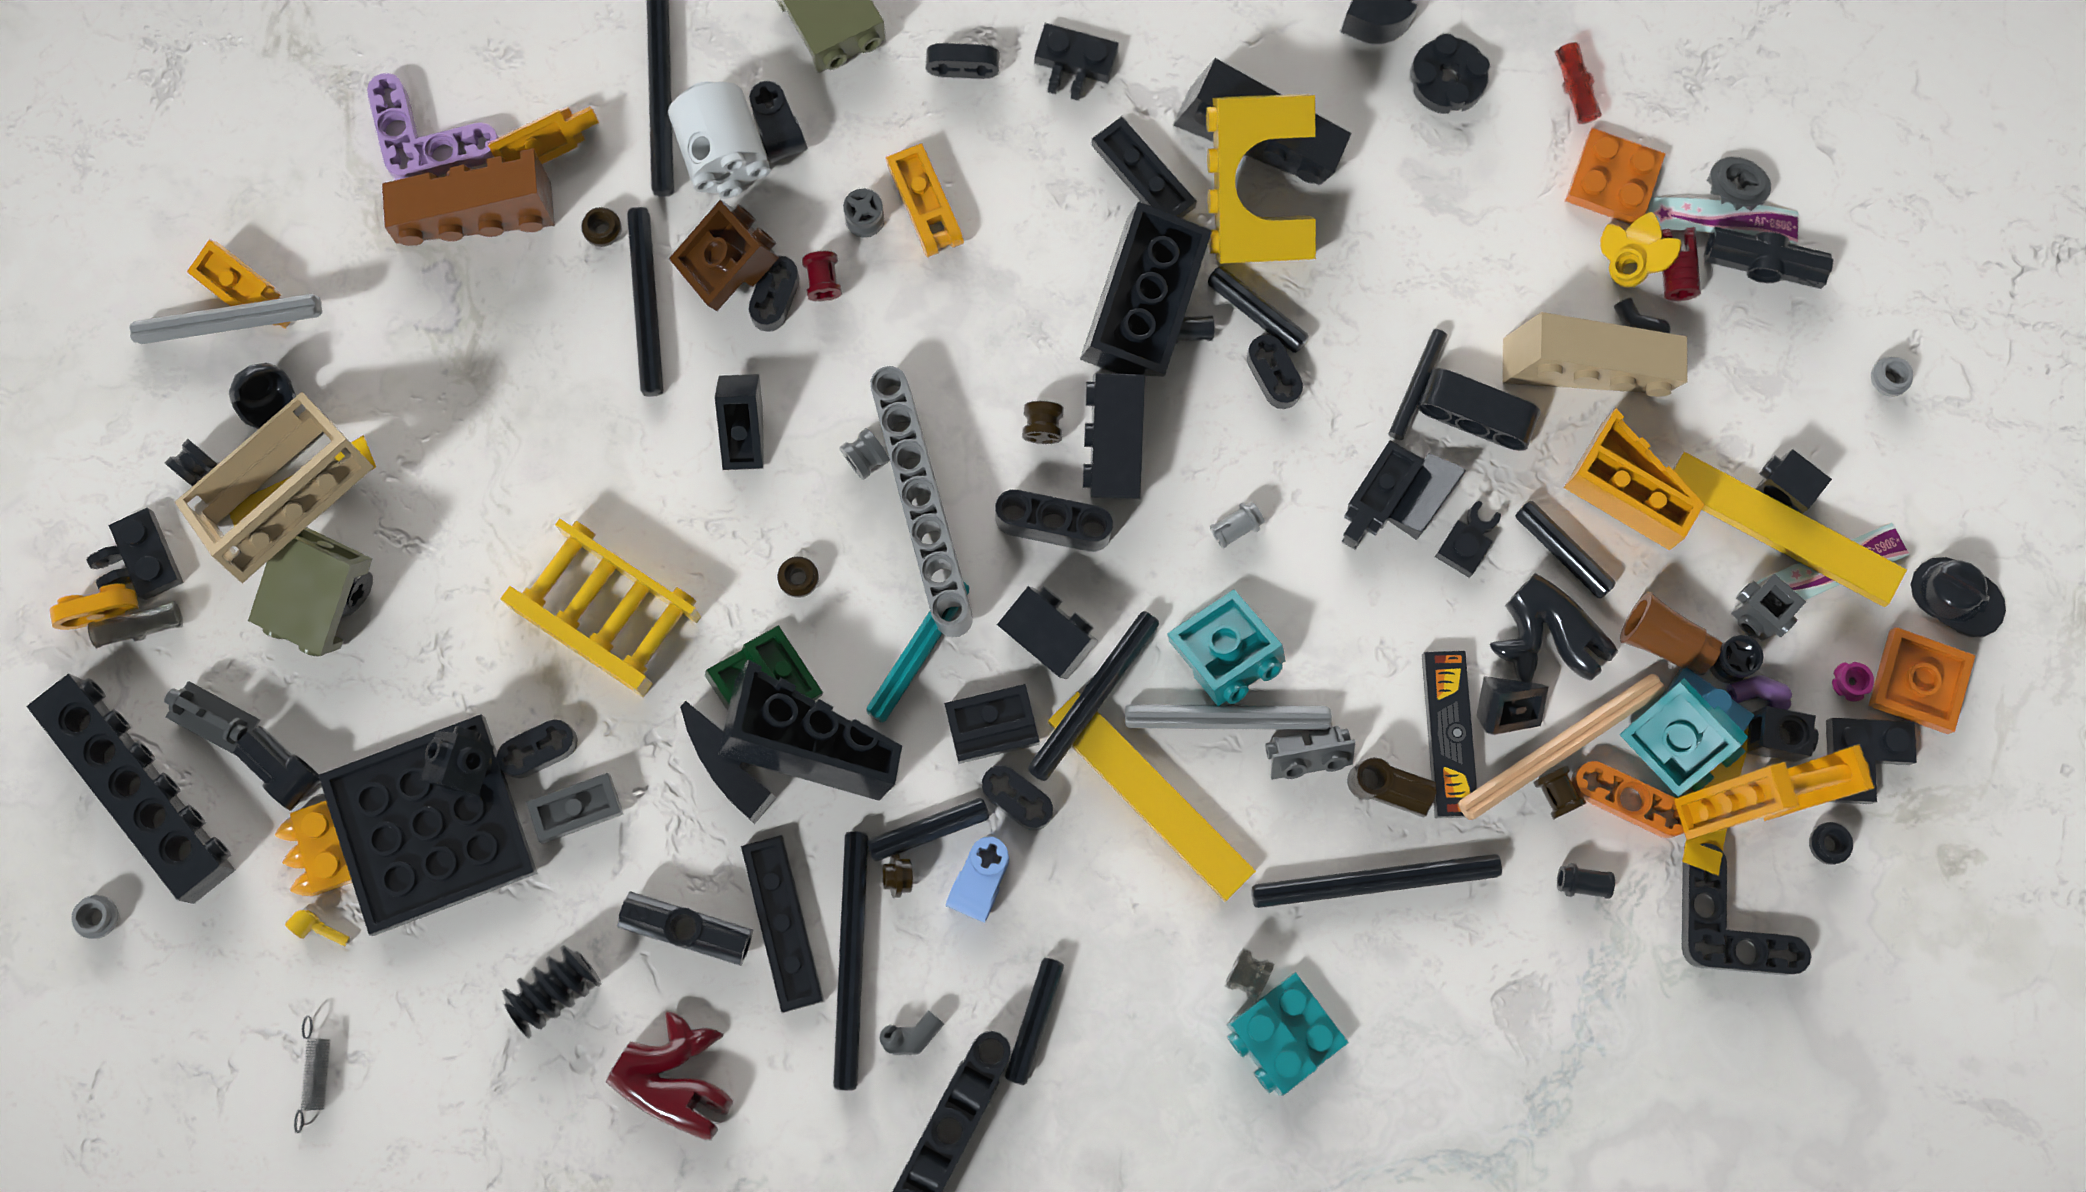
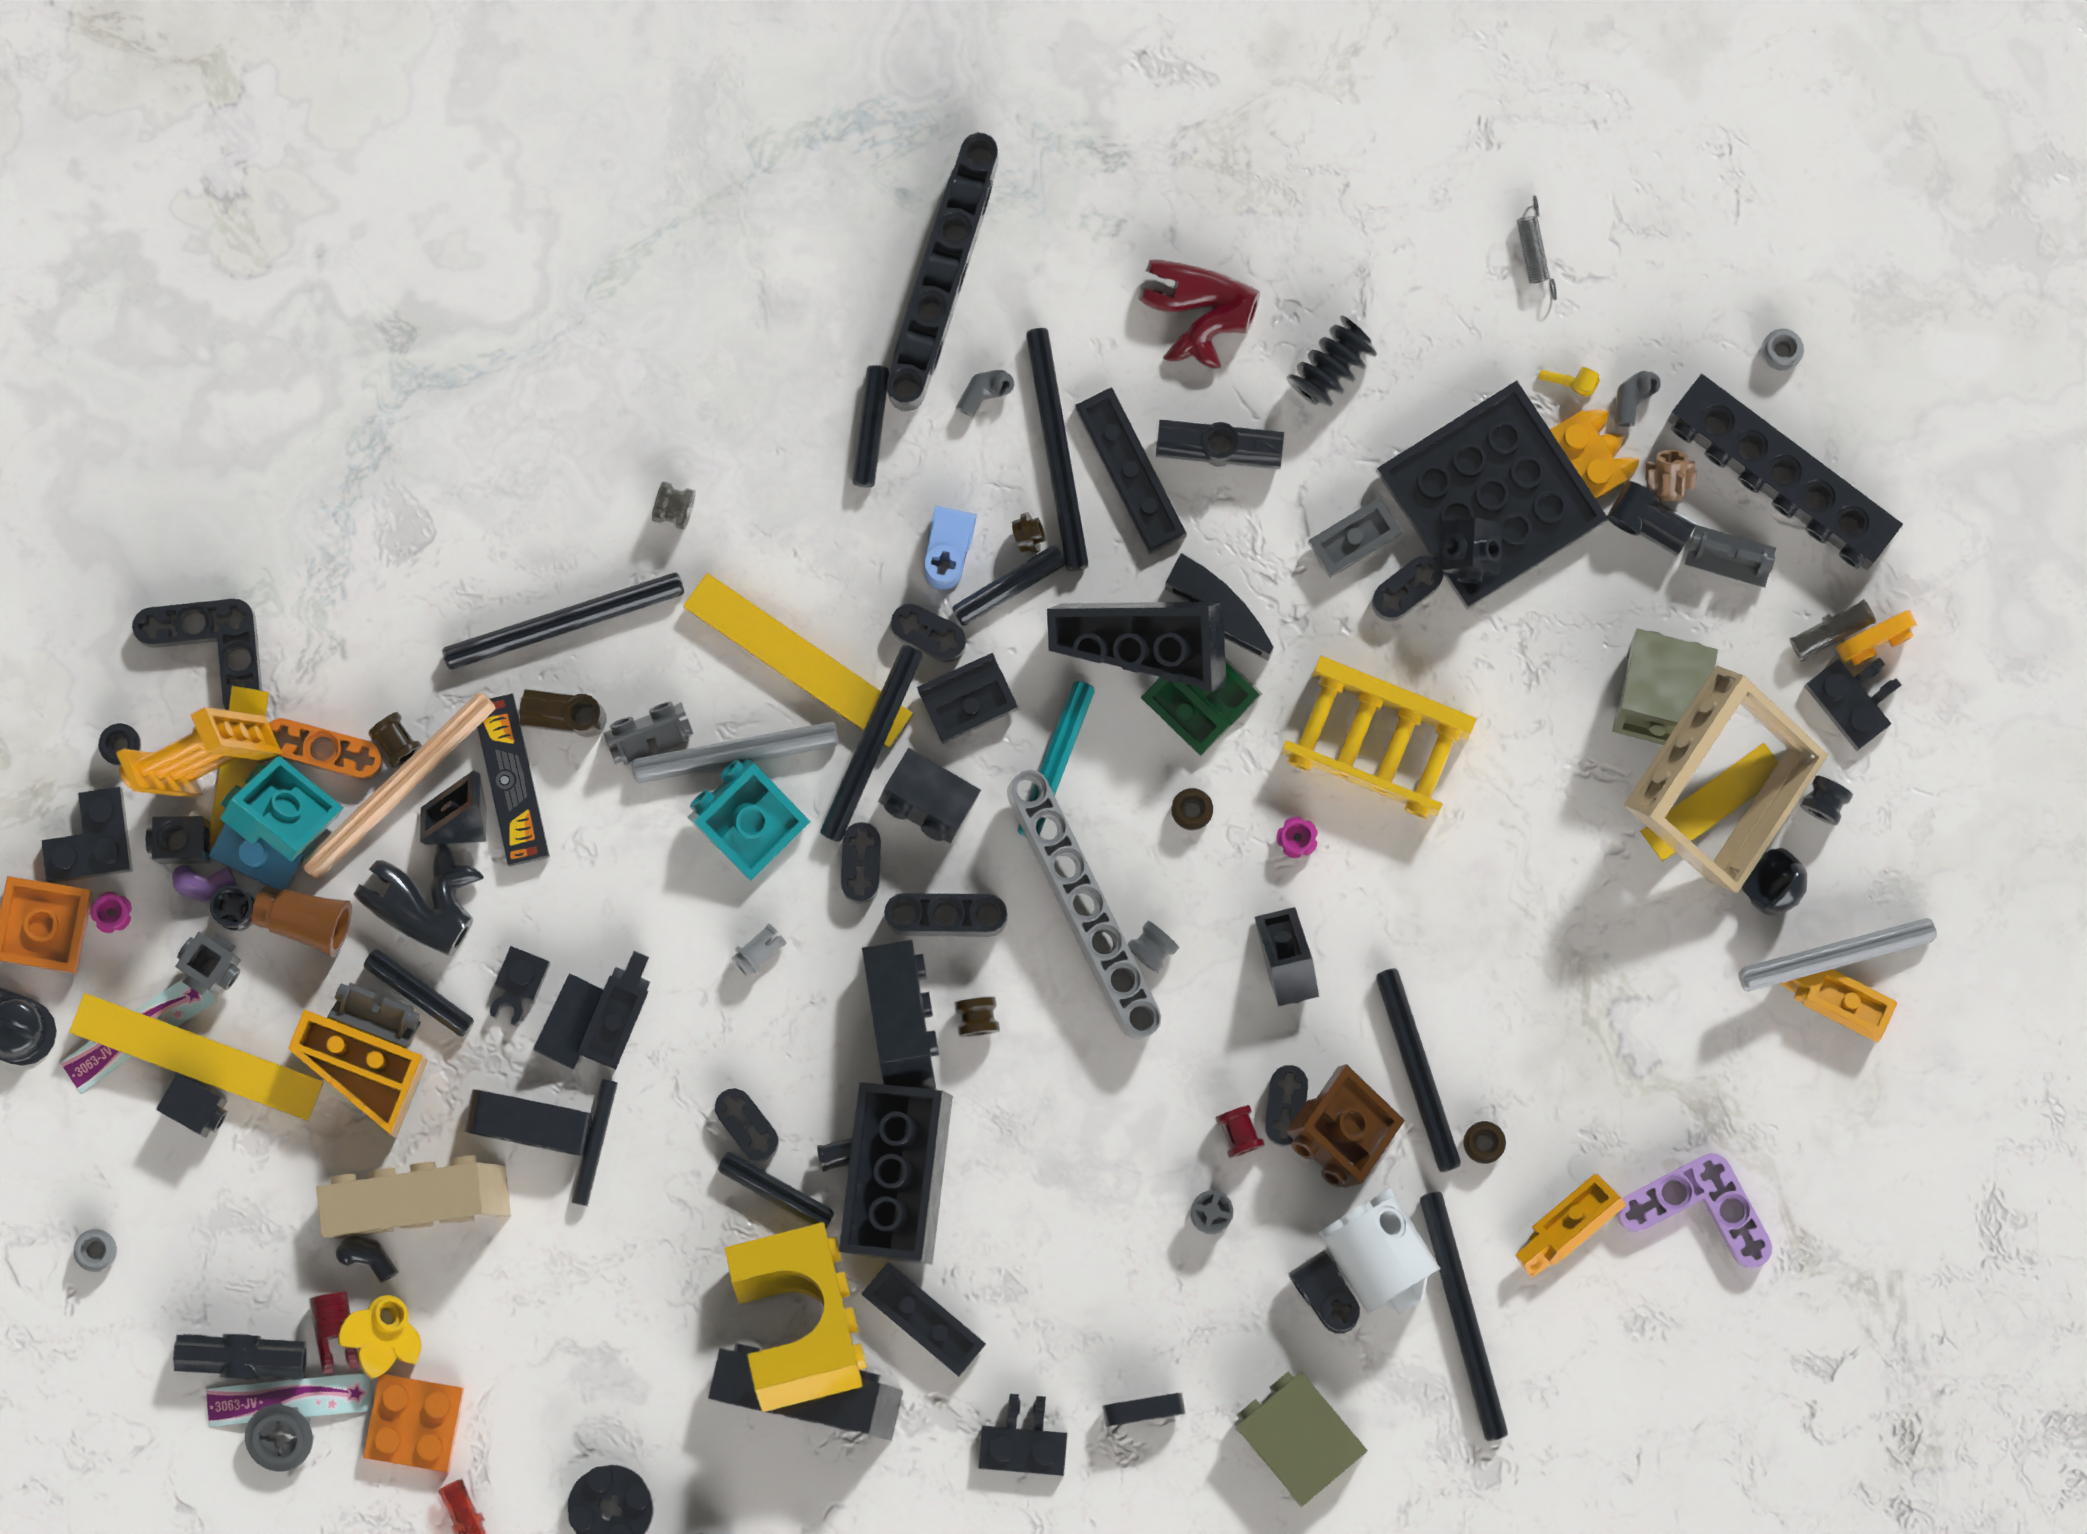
camera: 175 degrees right, 5 degrees up
(243, 806) = (1671, 475): none -> medium nougat gear
(258, 902) = (1632, 393): none -> dark grey arm
(470, 201) = (1626, 1133): dark orange wedge -> none
(697, 523) = (1294, 826): none -> dark pink plate
(924, 199) = (1151, 1241): light orange plate -> none
(1134, 590) = (850, 862): none -> black beam
(1285, 1035) = (629, 458): teal plate -> none
(1585, 881) = (359, 658): black pin -> none
(1612, 531) = (388, 1022): none -> dark grey hinge

